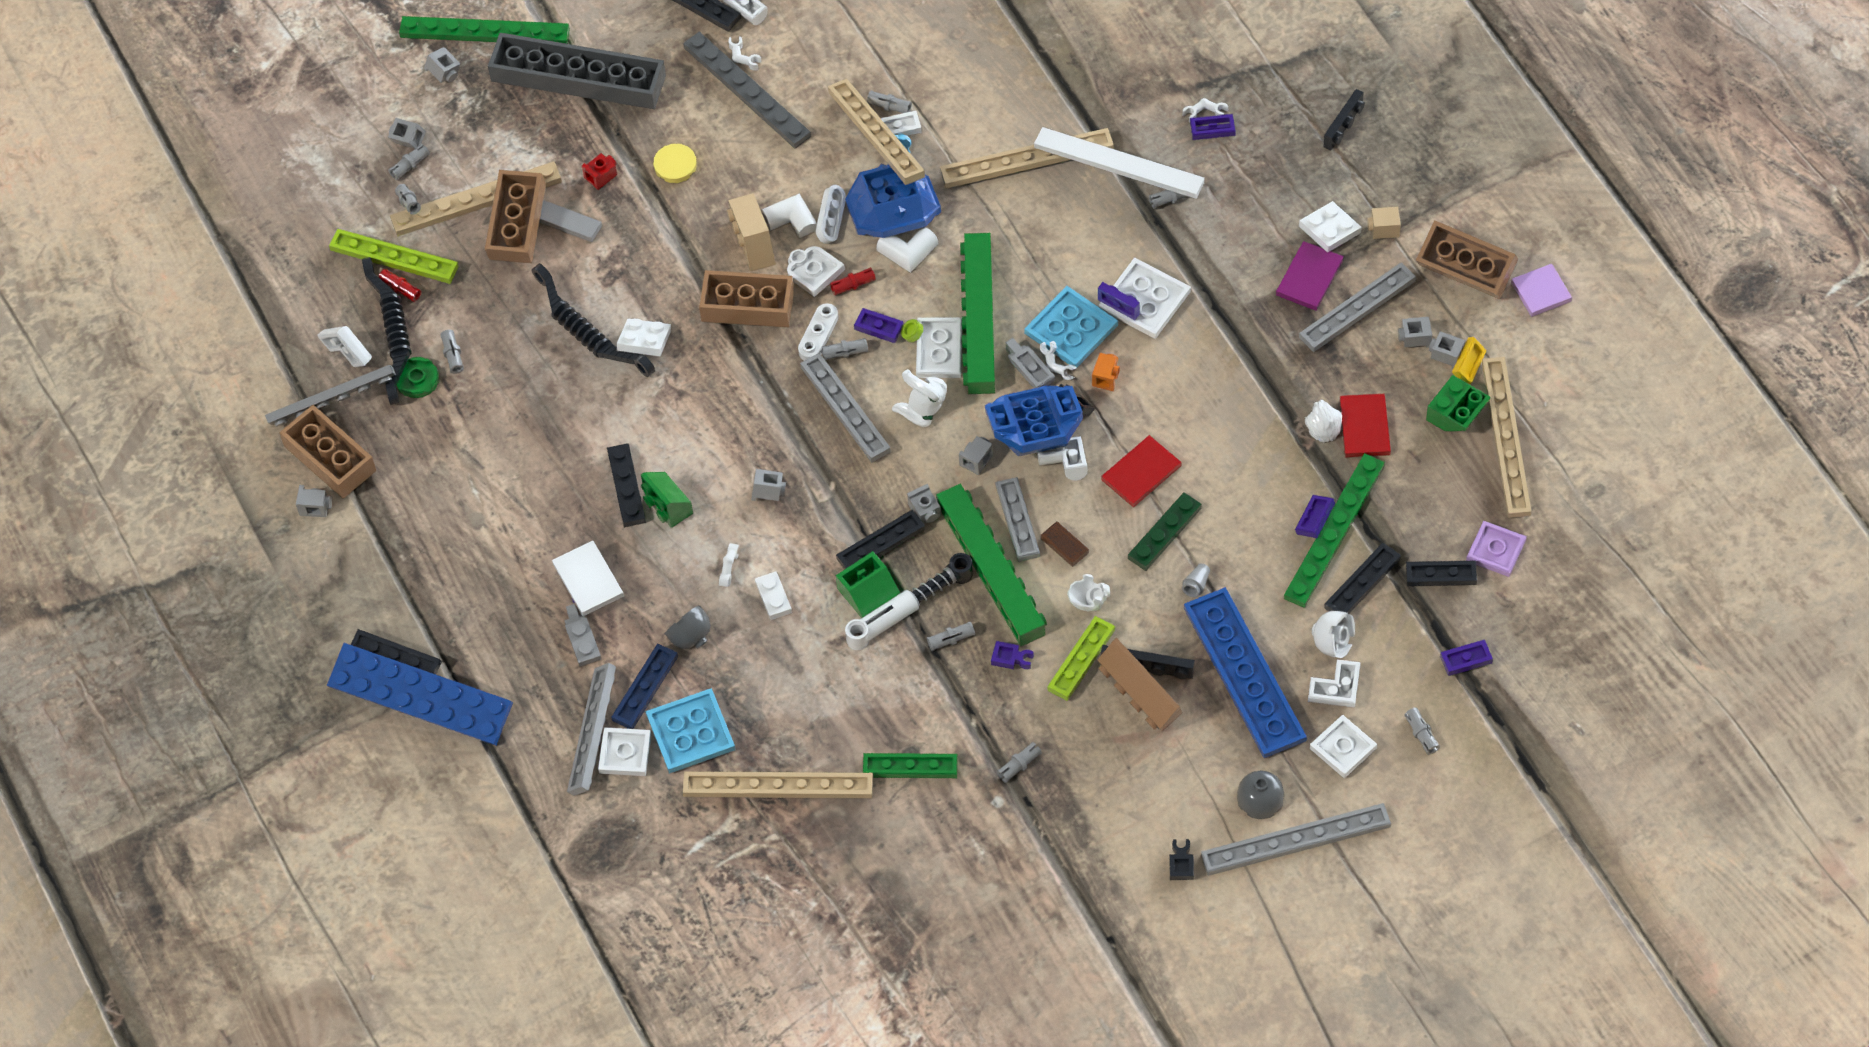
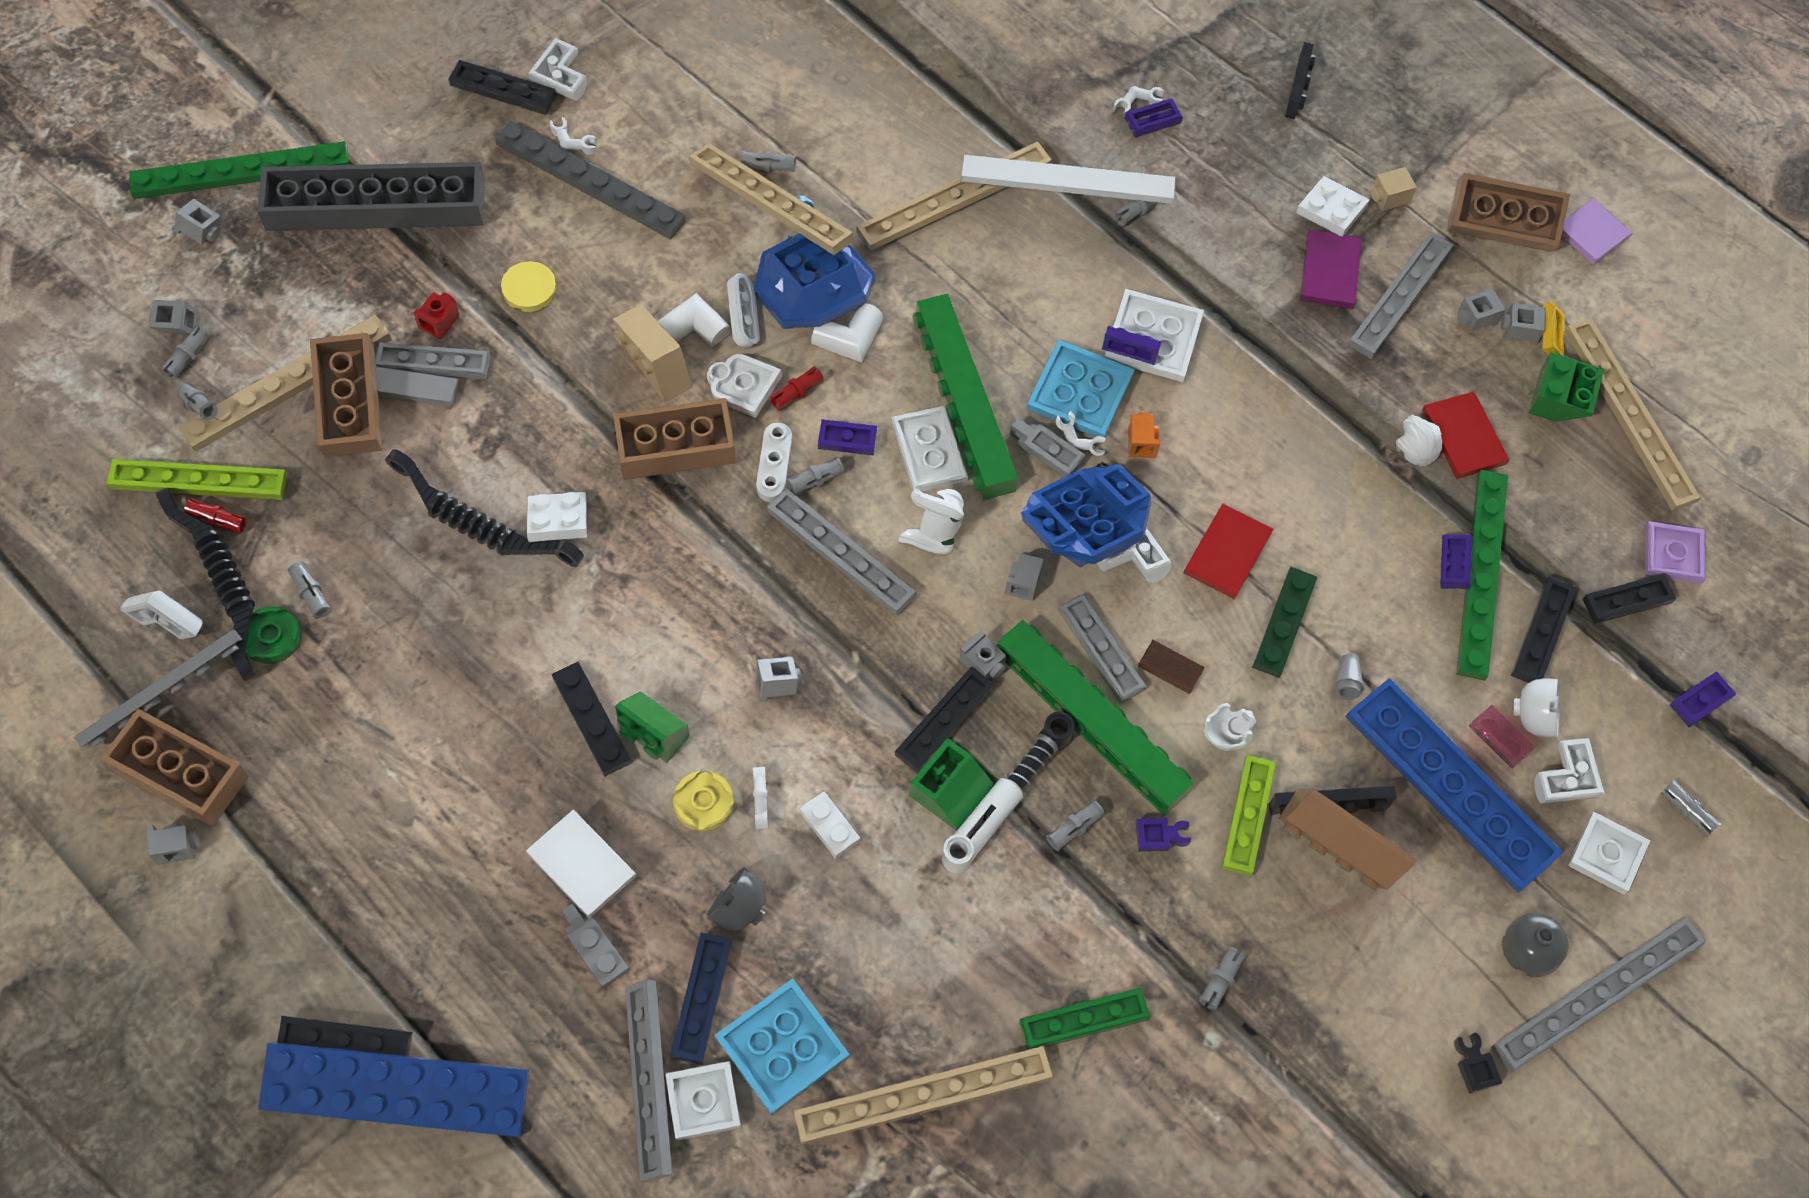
camera: 25 degrees left, 5 degrees up
(588, 204) = (434, 360): none -> light grey tile
(688, 559) = (703, 801): none -> light yellow tile
(904, 123) = (797, 182): white plate -> none
(912, 330) = (890, 434): lime tile -> none
(1296, 648) = (1502, 736): none -> clear pink plate

